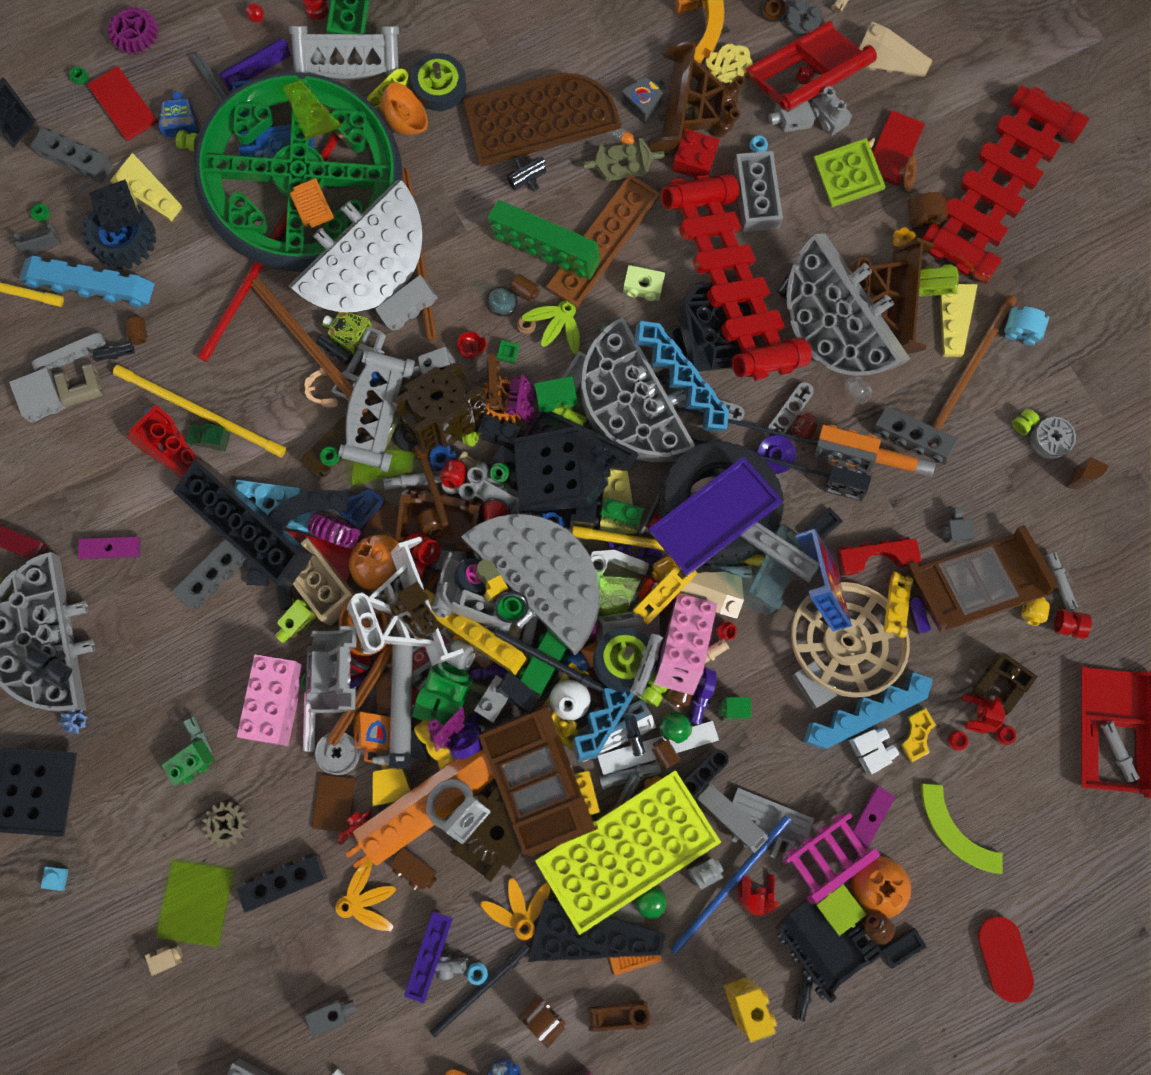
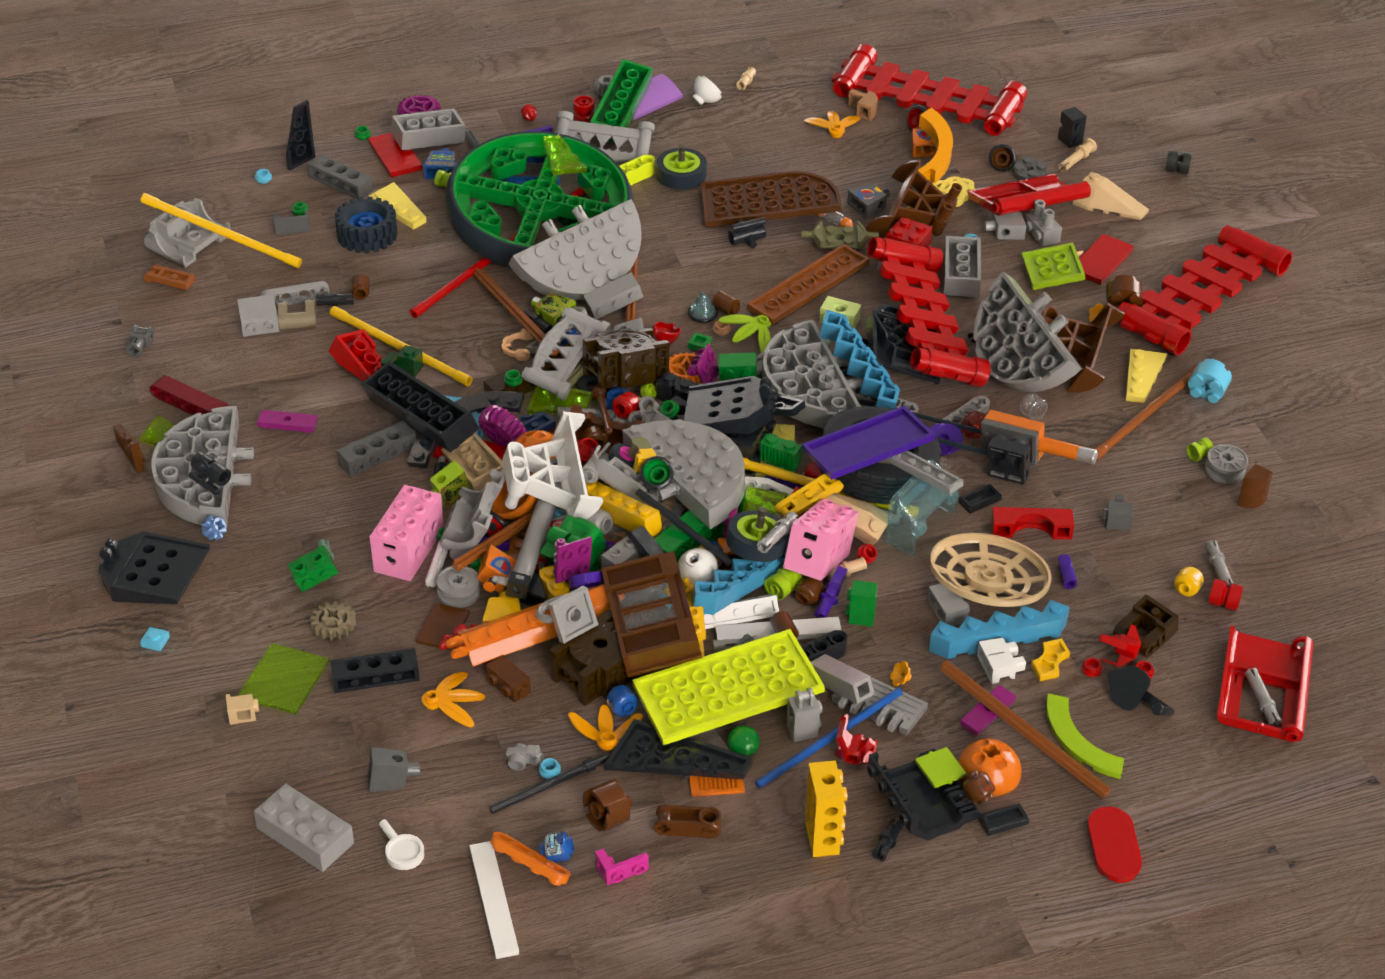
camera: 15 degrees right, 35 degrees down
(86, 281) = (328, 248): dark azure brick -> none
(116, 206) = (372, 198): black brick -> none
(150, 65) = (428, 129): none -> light grey brick
(311, 203) = (544, 211): orange window -> none
(403, 110) = (643, 178): orange piece -> none
(409, 606) = (562, 456): dark brown brick -> none
(428, 957) = (503, 740): dark purple fence -> none
(493, 368) = (680, 350): reddish brown hinge -> none
(528, 876) = (622, 700): none -> blue head
(544, 239) = (752, 267): green brick -> none
(634, 735) = (755, 607): black axle -> none
(675, 727) = (800, 611): green hair -> none
(783, 786) = (900, 673): none -> light orange plant
(830, 598) = (968, 508): blue panel -> none
(833, 879) = (933, 738): dark pink fence -> none
(892, 418) = (1107, 444): dark grey brick -> none
(898, 604) = (1045, 553): yellow plate -> none
(908, 839) = (1025, 729): none -> dark orange axle
(909, 172) = (1111, 267): dark orange dish -> none
(938, 280) = (1125, 342): lime brick -> none
(983, 580) = (1136, 551): reddish brown piece -> none
(1001, 767) = (1130, 686): none -> black piece

